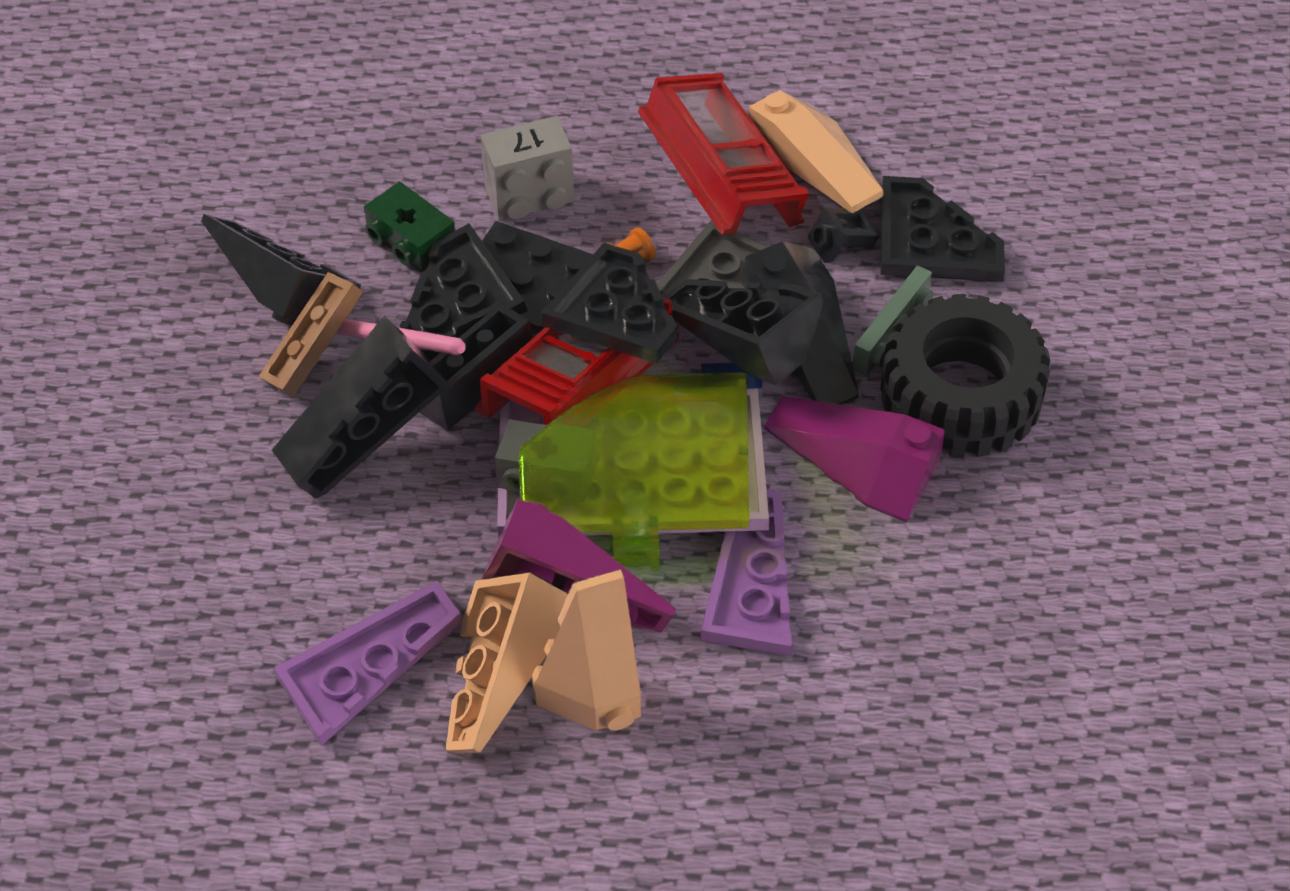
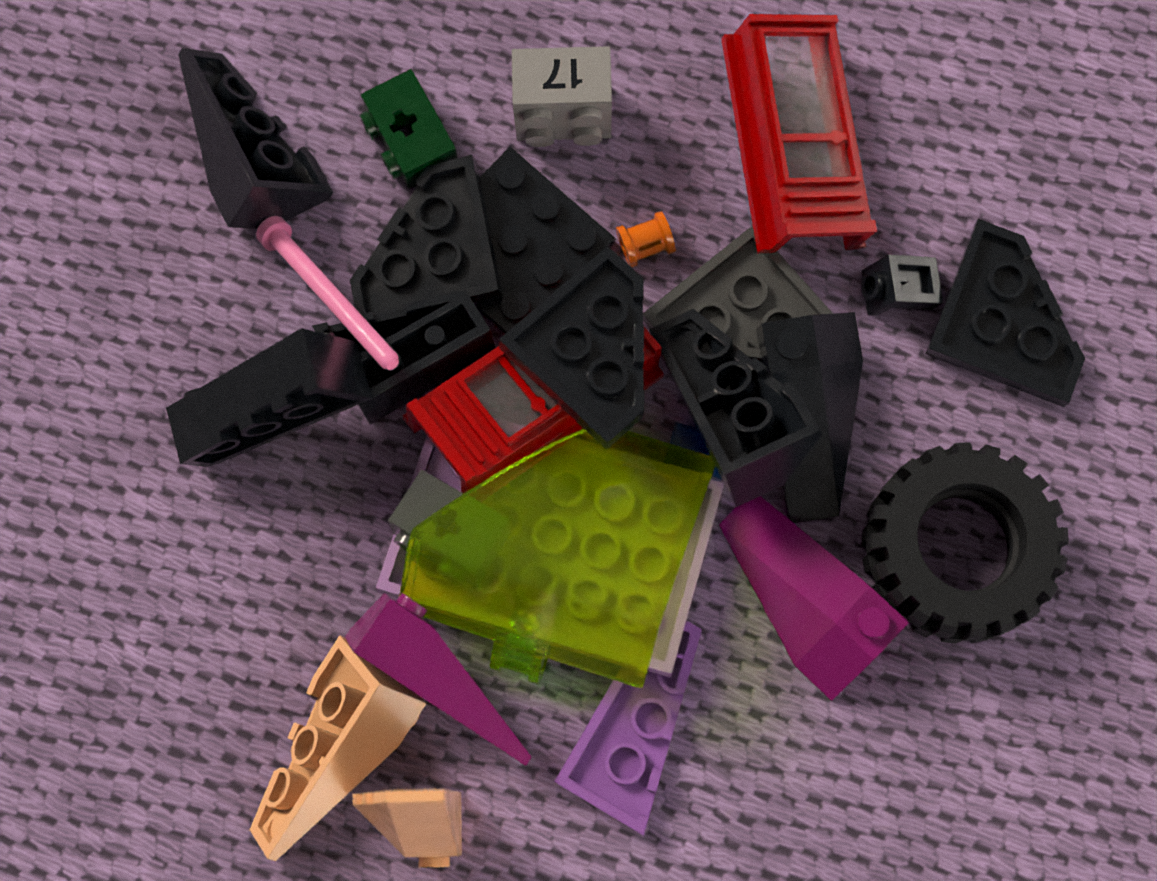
camera: 20 degrees right, 25 degrees up
(310, 334) = (251, 260): medium nougat plate -> none
(356, 665) = (187, 701): medium lavender wing -> none
(815, 150) = (915, 155): light nougat wedge -> none
(872, 344) = (914, 434): sand green plate -> none

